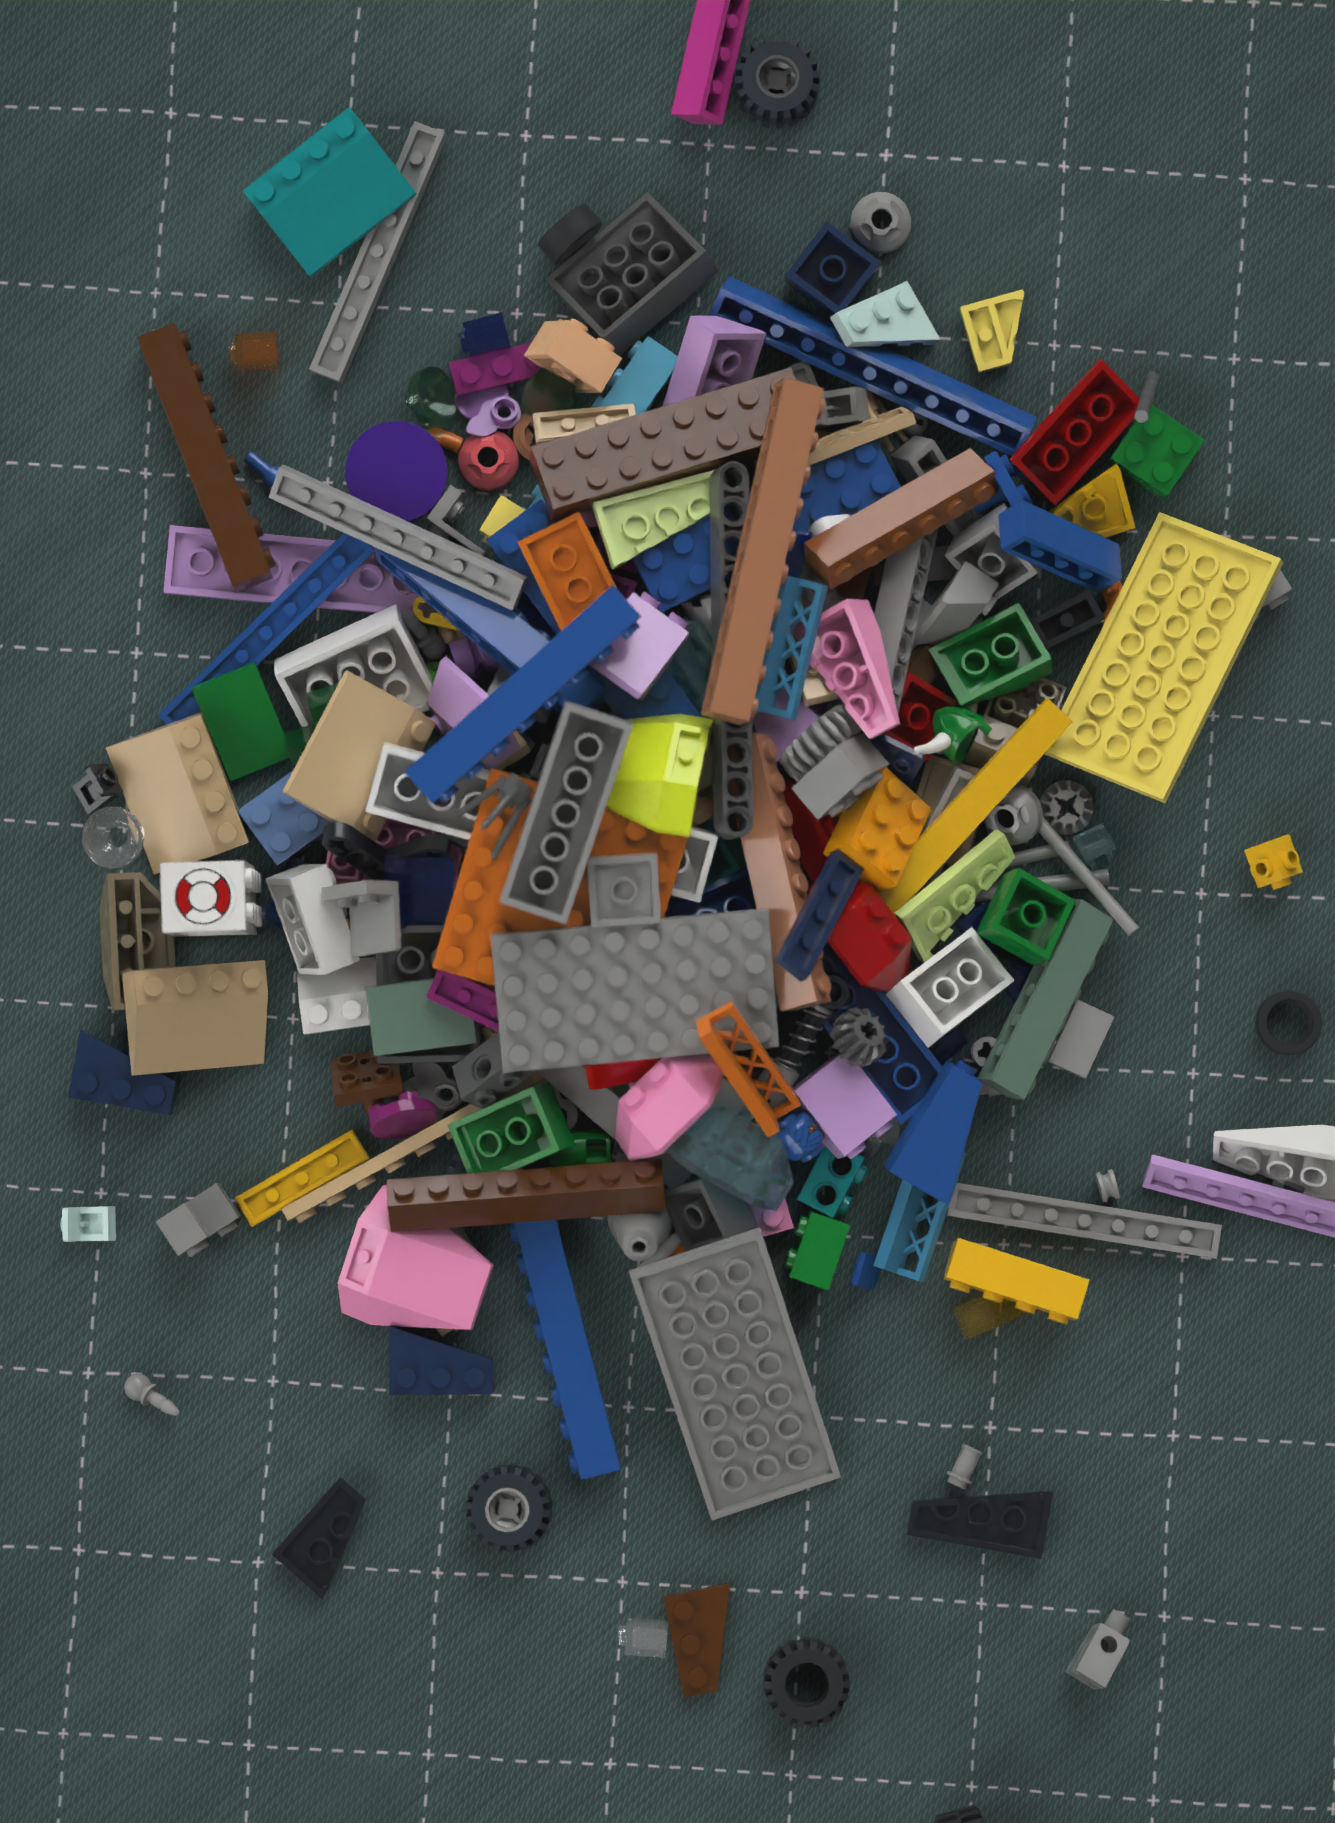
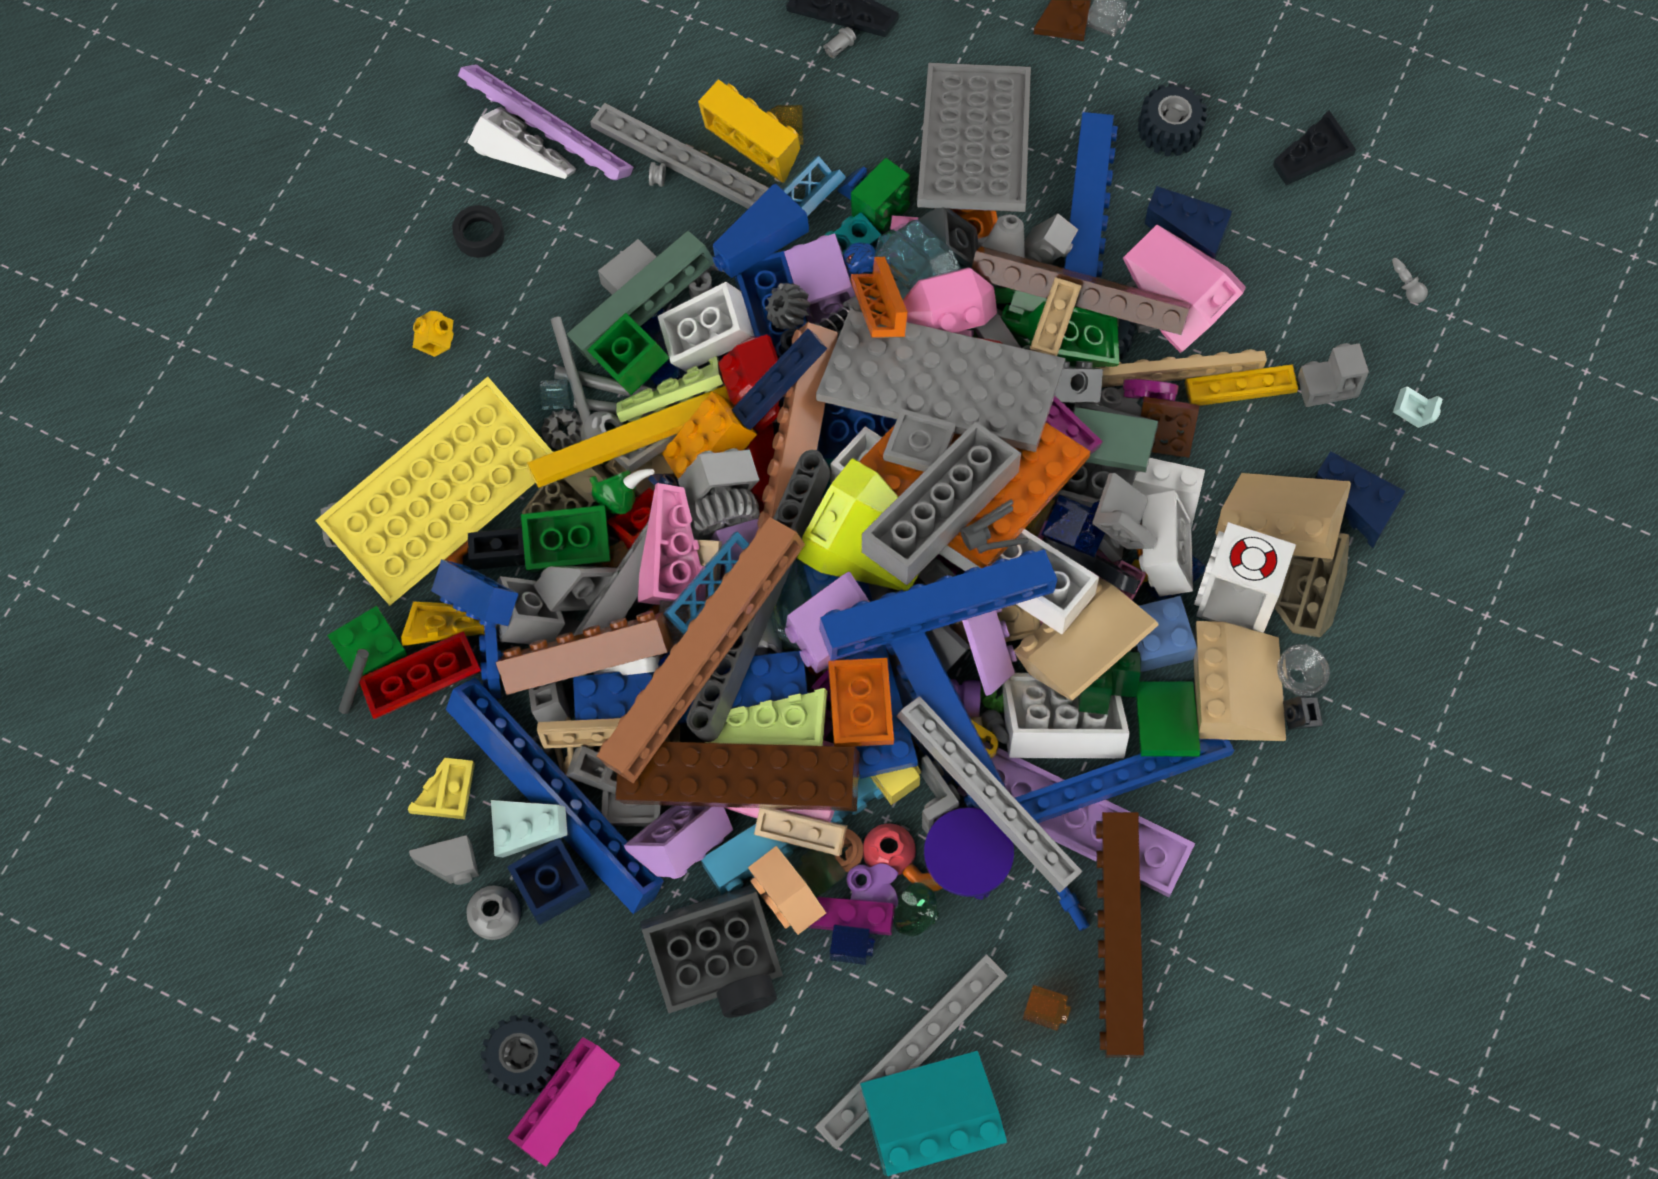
camera: 150 degrees left, 20 degrees down
(536, 1129) = (1055, 317): none -> tan tile
(593, 1265) = (1050, 240): none -> light grey brick
(952, 253) = (448, 860): none -> light grey slope

